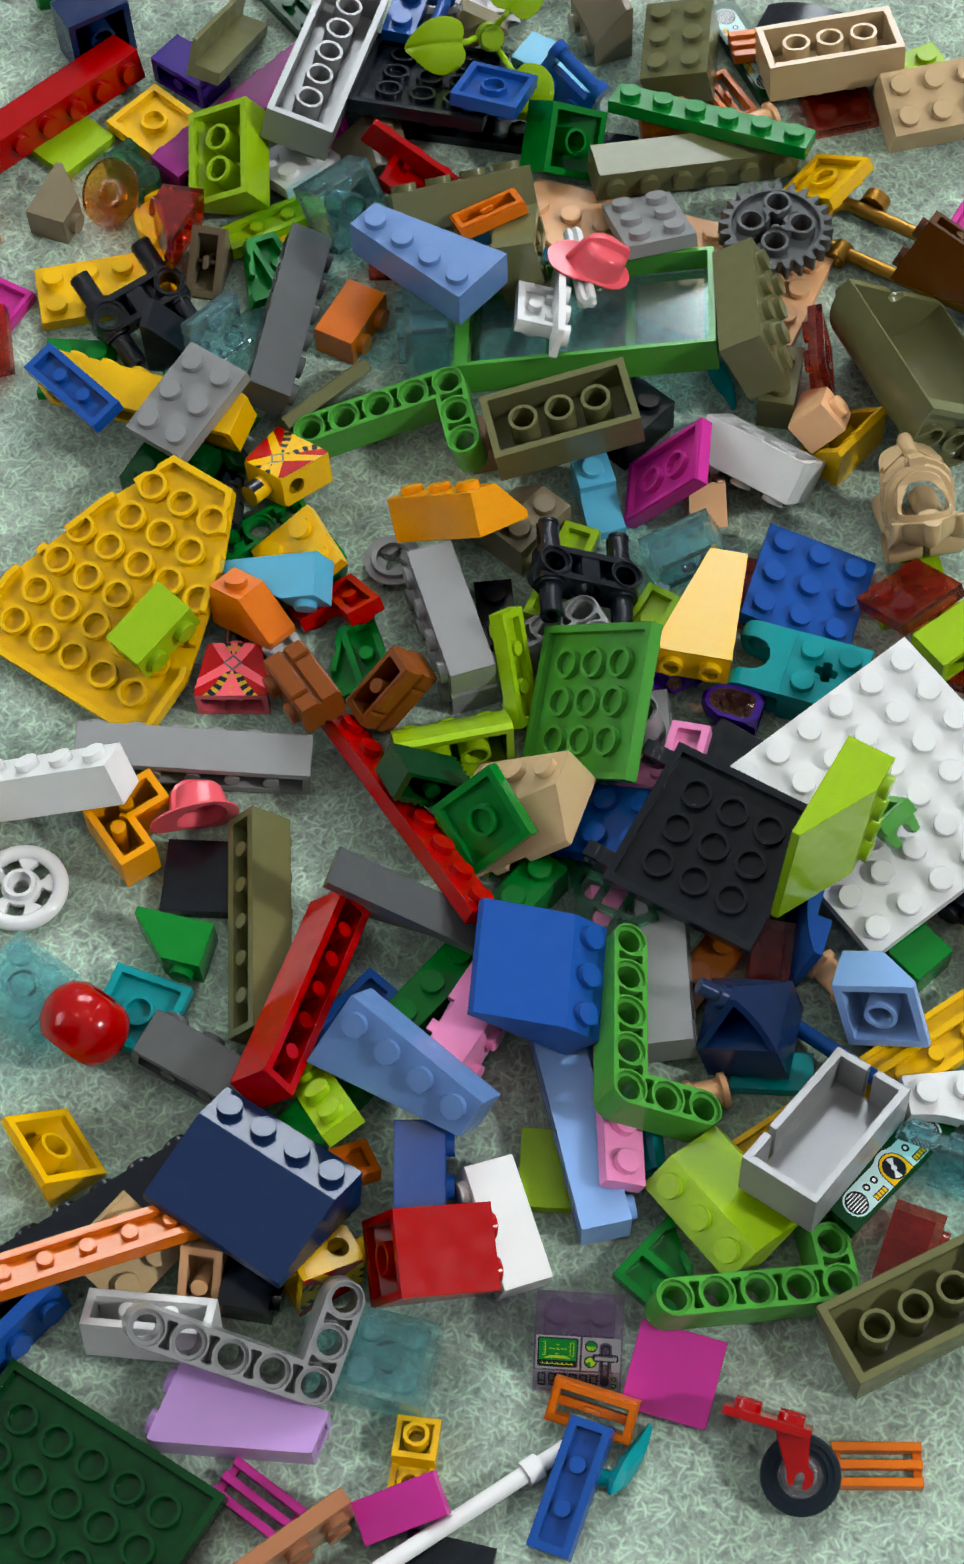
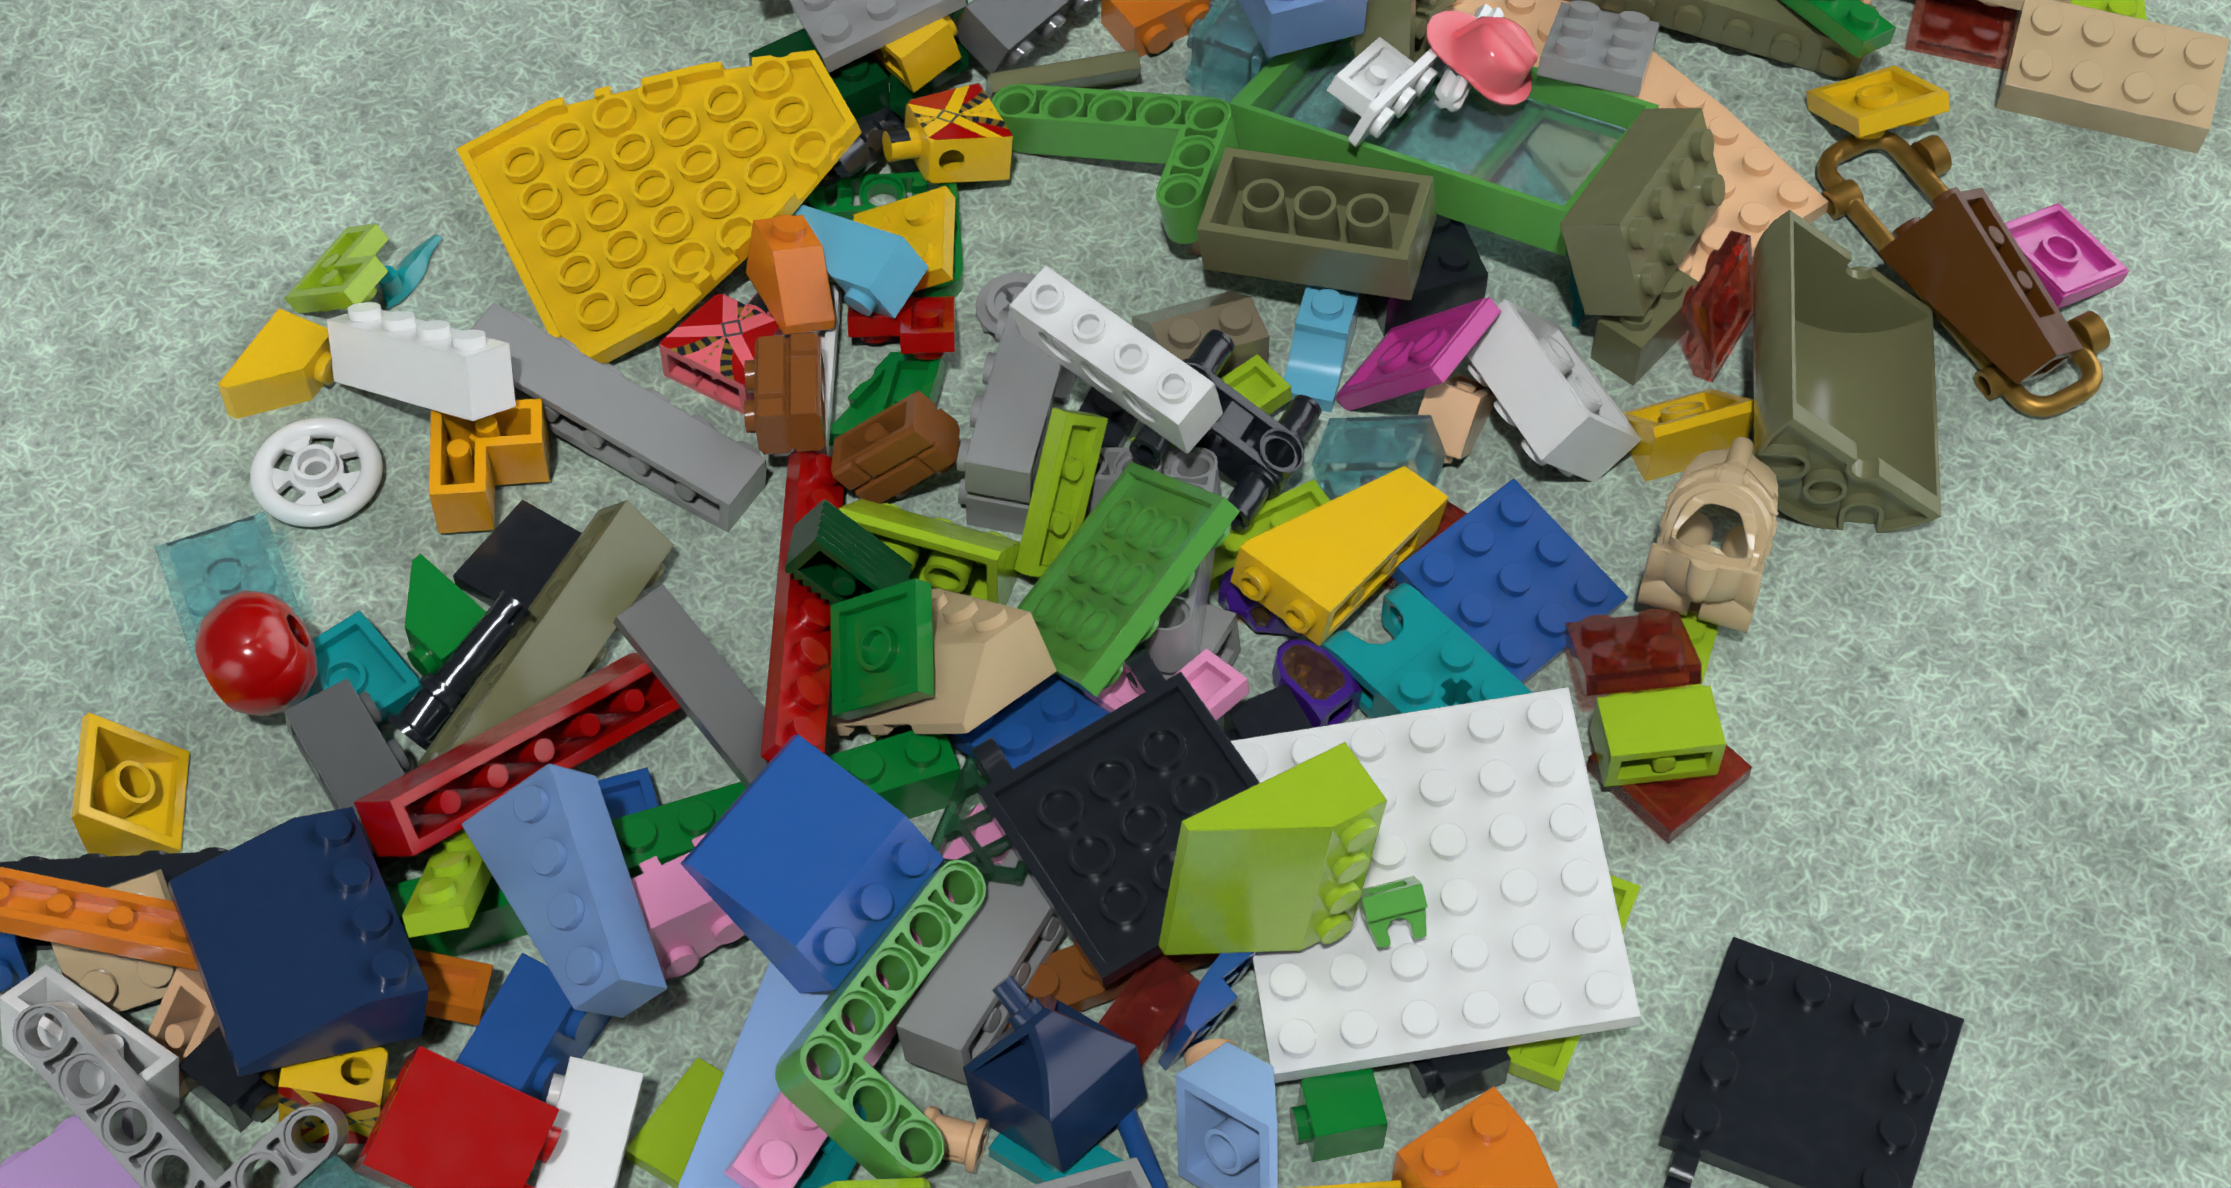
camera: 25 degrees right, 5 degrees down
(153, 630) = (655, 241): lime brick -> none
(195, 806) = (566, 471): coral piece -> none
(210, 985) = (443, 691): none -> black pin
(452, 511) = (1113, 268): light orange slope -> none
(507, 565) = (1117, 359): none -> white brick
(782, 223) = (1772, 127): dark grey gear -> none
(819, 418) = (1660, 379): light nougat slope -> none

